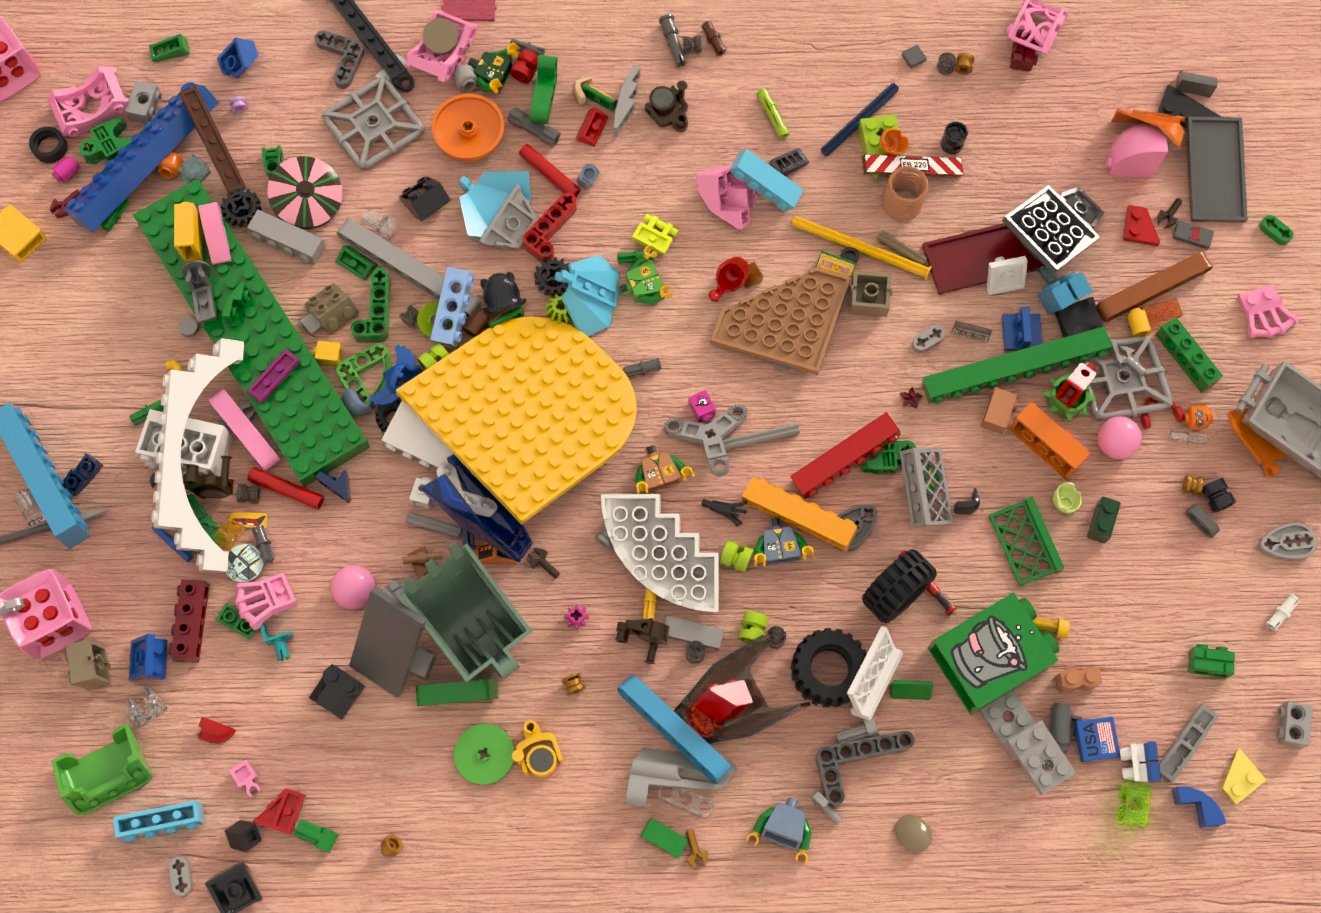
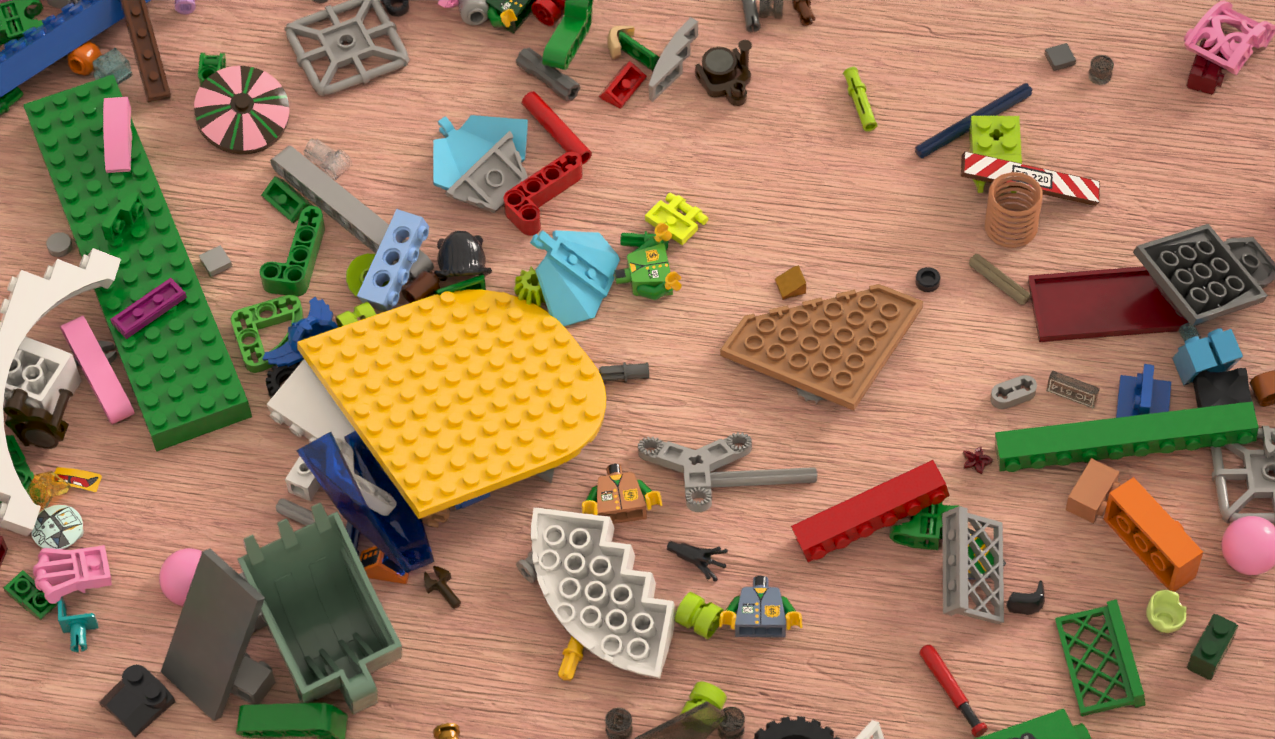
camera: 15 degrees right, 15 degrees down
(188, 232) = (84, 127): yellow brick -> none
(197, 278) = (82, 179): flat silver piece -> none
(240, 206) = (158, 117): black gear -> none
(248, 493) = (83, 445): clear smoke wheel -> none
(263, 544) = (87, 508): dark grey axle -> none
(285, 488) = (132, 447): red piece -> none
(286, 237) = (206, 158): light grey brick -> none
(328, 353) = (225, 297): yellow brick -> none
(331, 307) = (243, 246): dark tan bracket -> none
(339, 487) = (199, 454): dark blue slope -> none
(354, 404) = (244, 361): sand blue hair -> none
(409, 316) = (338, 269): clear smoke wheel -> none
(424, 197) = (390, 136): black slope -> none
(468, 127) = (463, 63): orange dish -> none
(549, 283) = (524, 253): black gear -> none
(572, 612) = (477, 657): dark pink gear -> none
(588, 176) = (604, 139): sand blue hair -> none
(646, 630) = (558, 684): dark brown piece -> none
(693, 631) = (608, 696): light grey tile -> none
(702, 406) = (692, 427): dark pink brick -> none
(726, 195) = (786, 180): bright pink brick -> none
(730, 277) = (762, 278): red piece -> none
(766, 180) = (831, 169): medium azure brick -> none
(786, 157) = (856, 168): black slope -> none
(800, 514) = (795, 575): light orange brick -> none
(835, 264) = (907, 284): yellow slope -> none
(861, 247) = (946, 270): yellow axle -> none
(864, 526) = (869, 619): dark grey piece -> none
(870, 293) = (944, 323): dark tan brick -> none
(893, 142) = (1007, 144): orange hair -> none
(899, 586) = (908, 677): black tyre -> none
(954, 137) = (1093, 155): black wheel -> none
(964, 63) = (1125, 72): pearl gold wheel -> none
(1006, 275) = (1132, 326): white tile -> none
(1061, 409) = (1191, 486): bright green brick -> none
(1079, 380) = (1202, 454): red torso -> none

